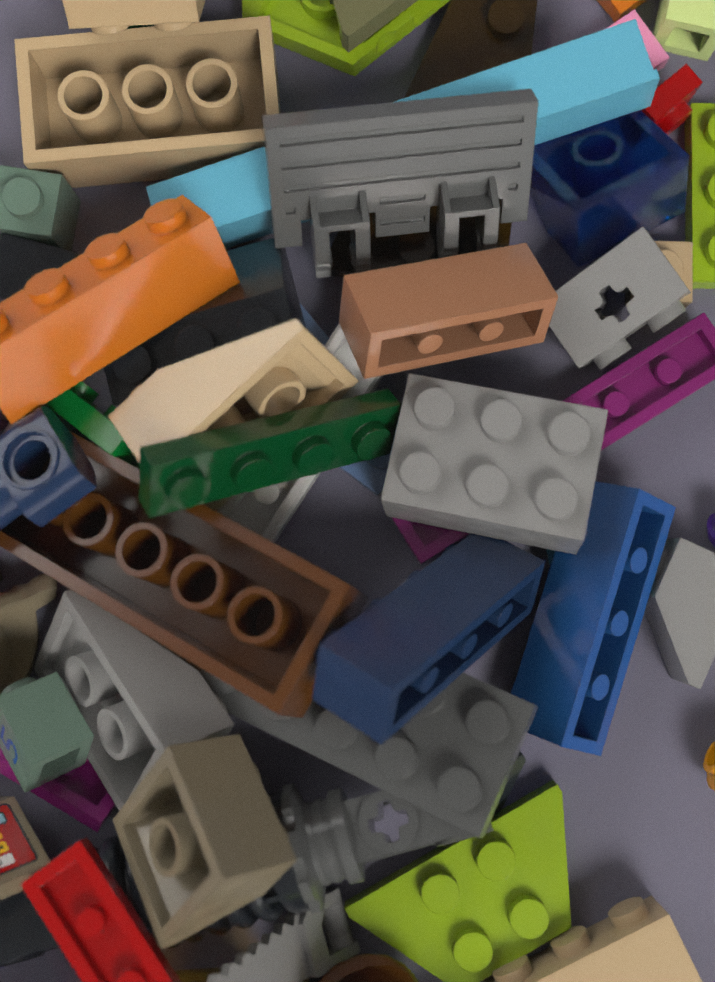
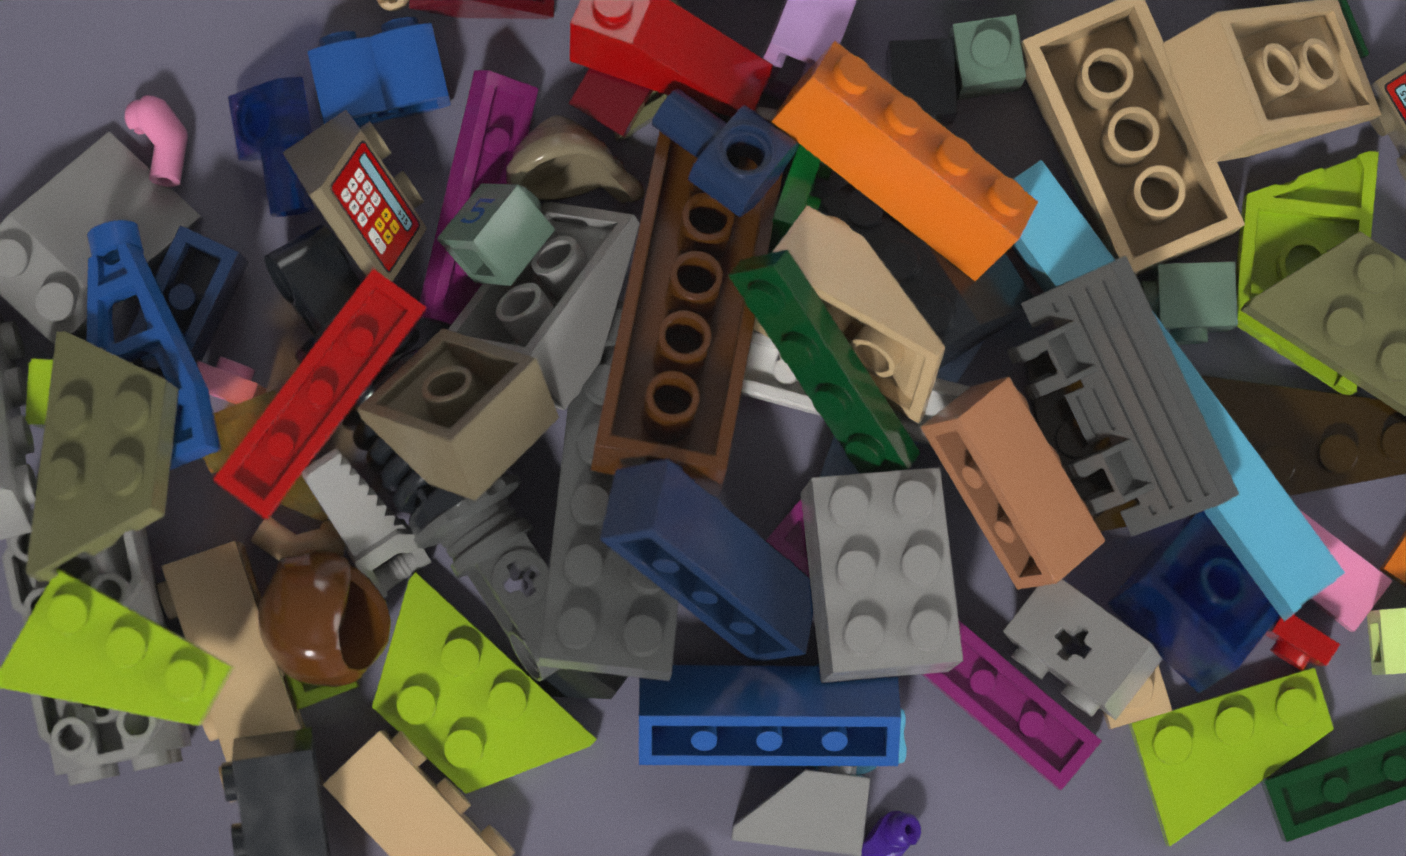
camera: 70 degrees right, 0 degrees up
(323, 81) = (1193, 299): none -> sand green brick

